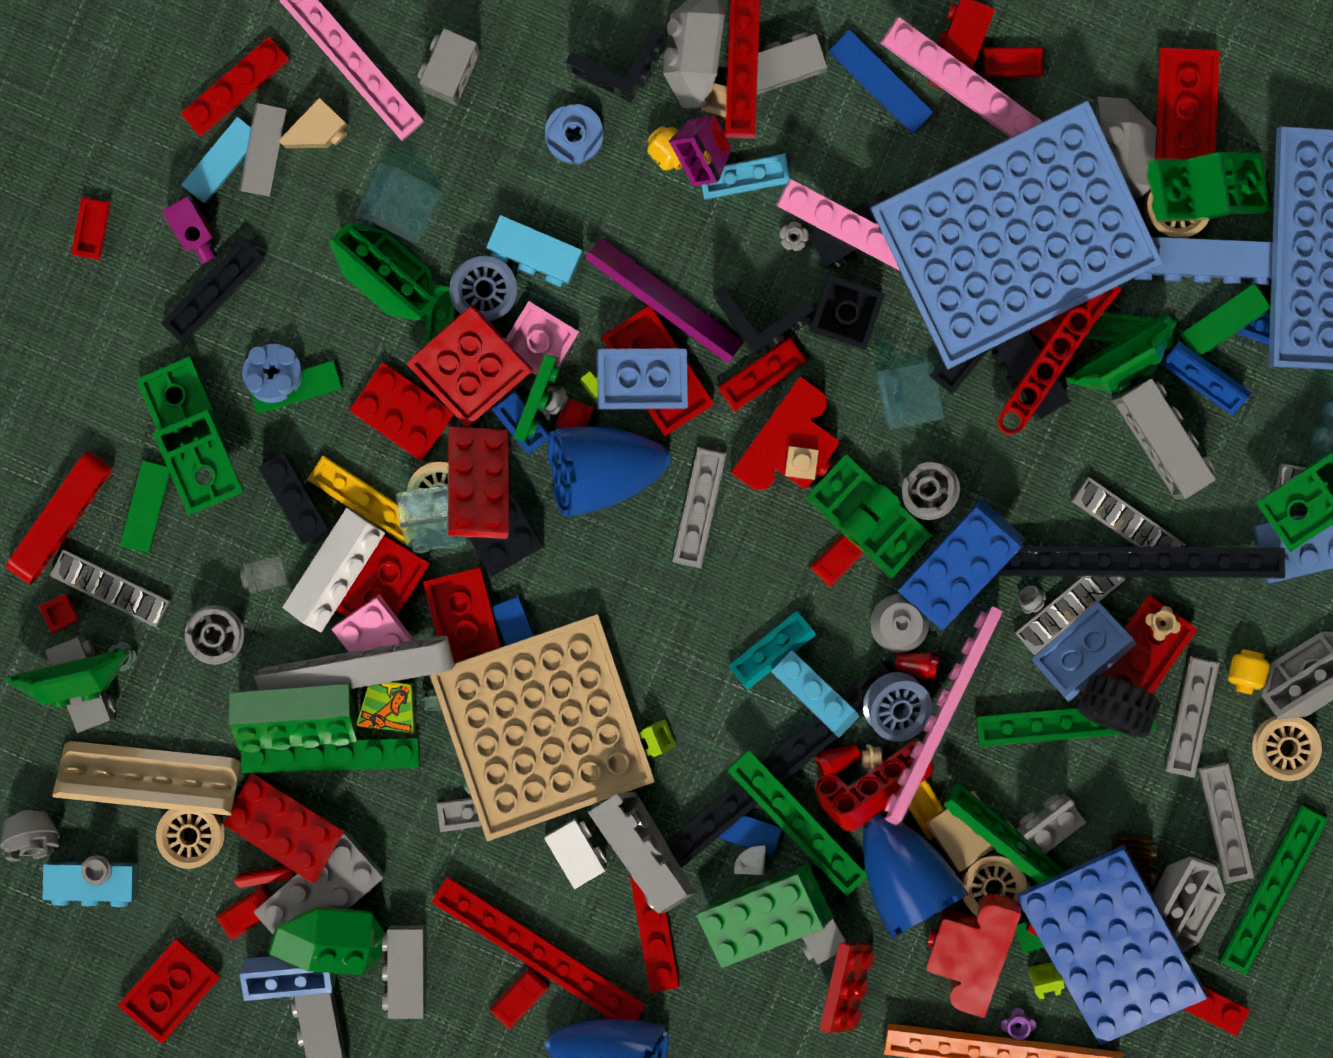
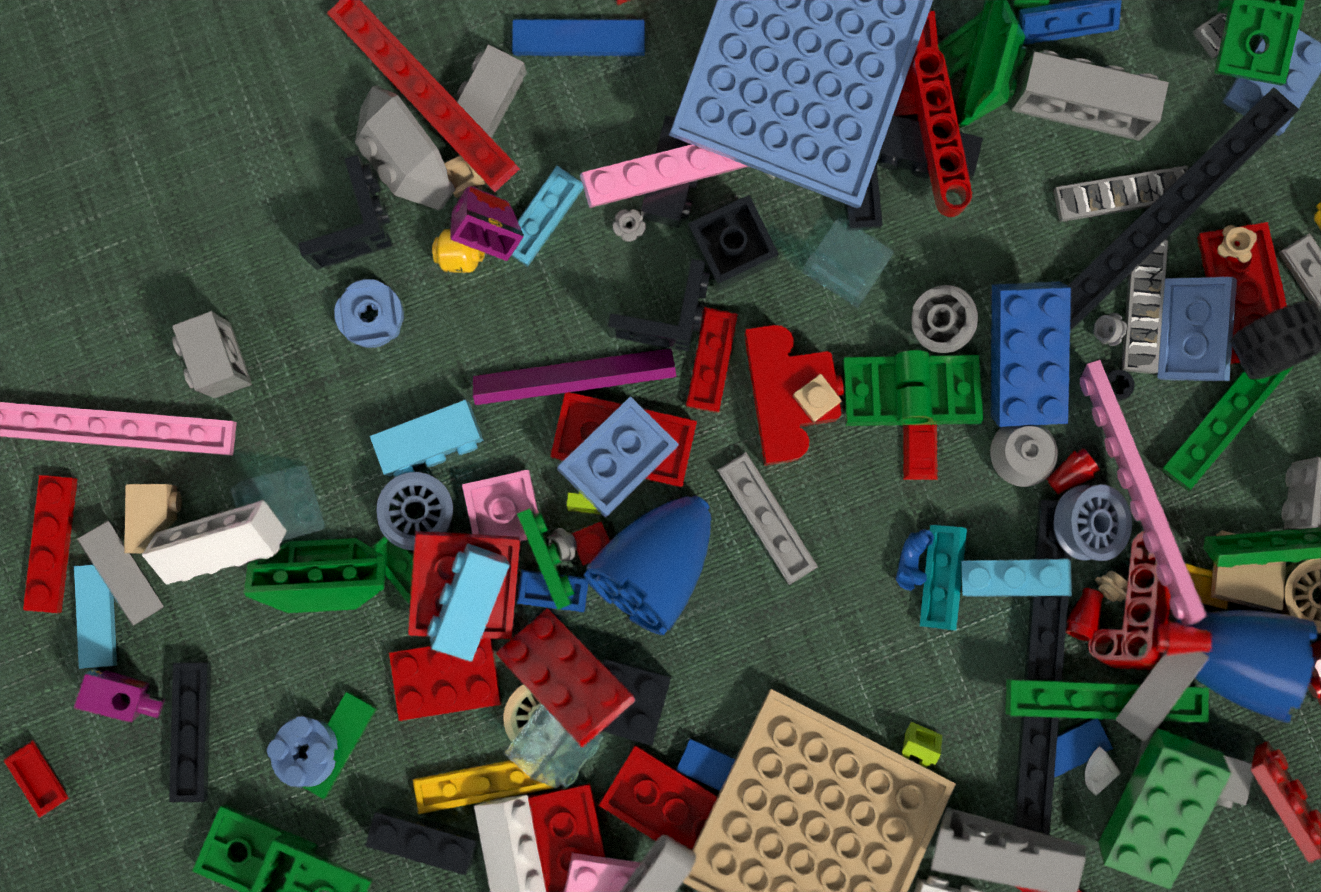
camera: 40 degrees left, 5 degrees down
(341, 190) = (215, 543): none -> white brick
(462, 379) = (467, 602): none -> medium azure brick
(755, 625) = (908, 569): none -> blue piece
(835, 844) = (1160, 693): none -> light grey tile
(874, 823) = (1182, 639): none -> red cone
(1001, 648) = (1128, 382): none -> black bush

